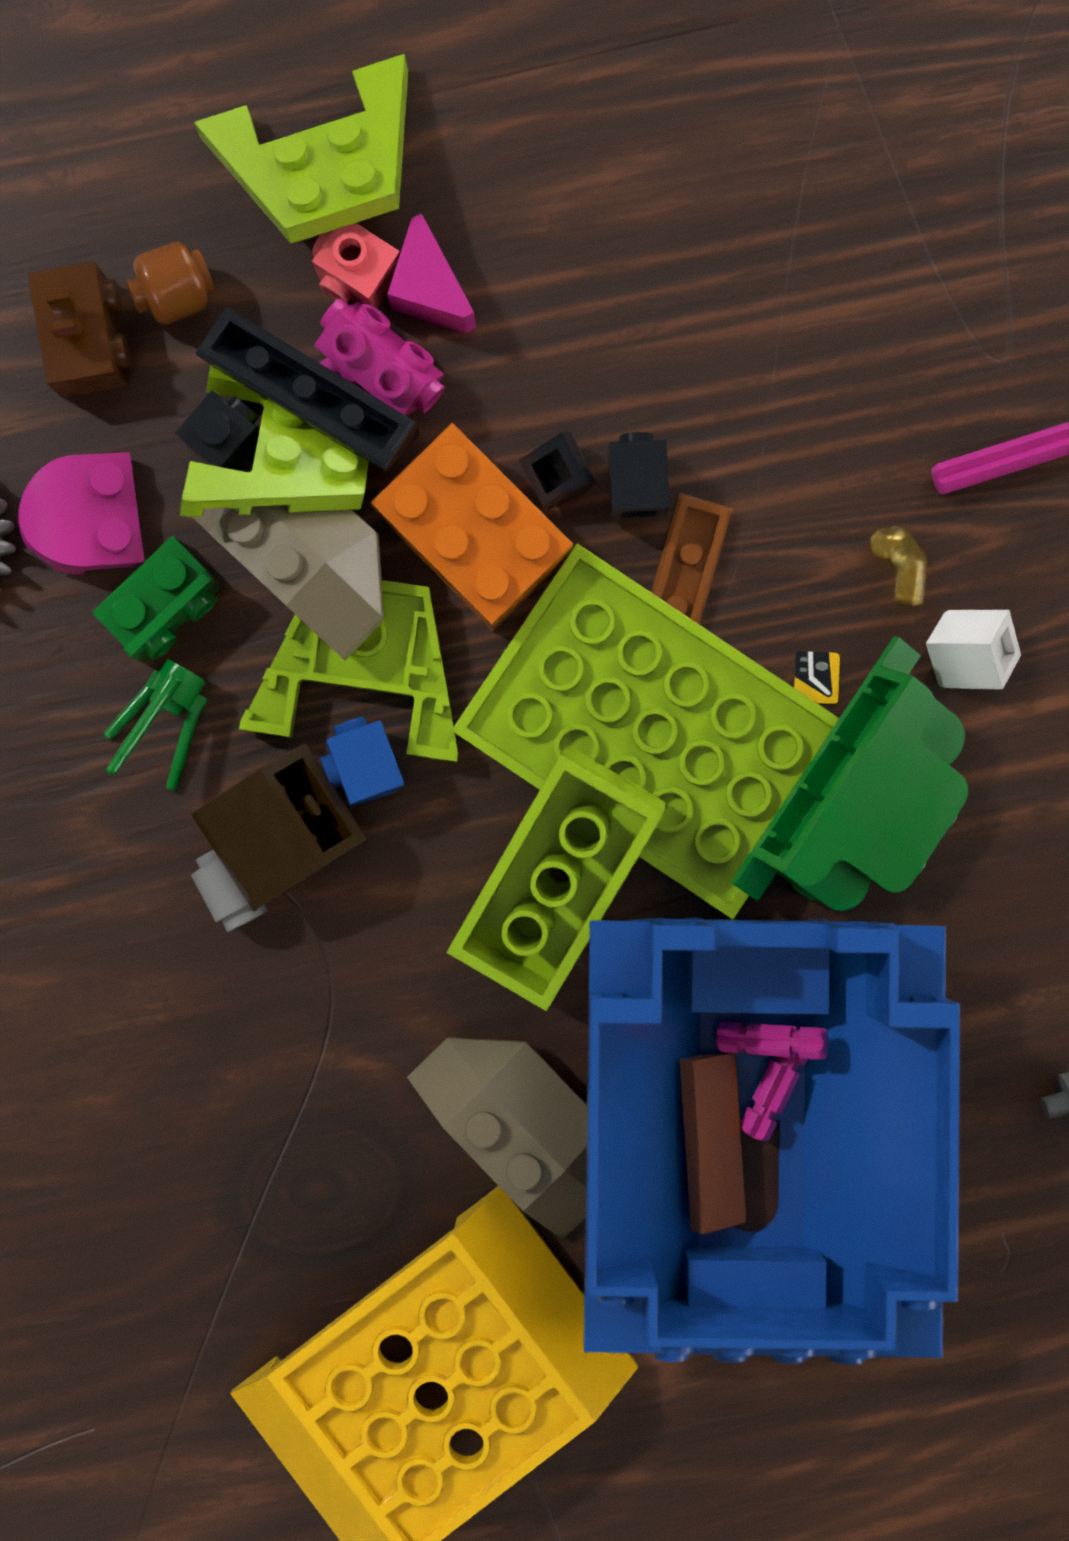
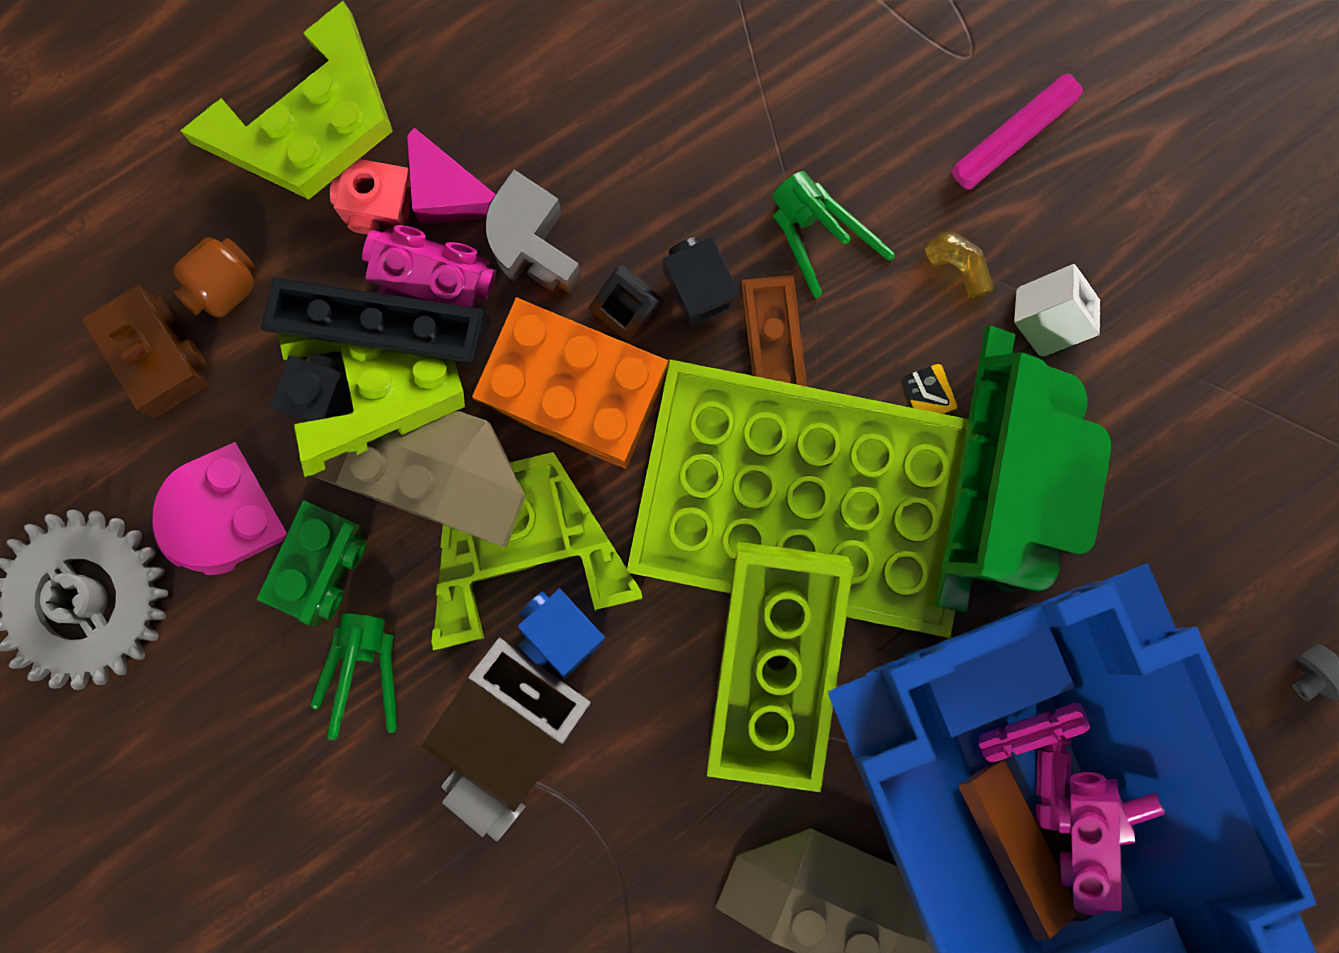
camera: 25 degrees left, 5 degrees down
(480, 355) = (516, 232): none -> light grey brick
(773, 443) = (804, 203): none -> green plant
(792, 1150) = (1098, 828): none -> dark pink brick

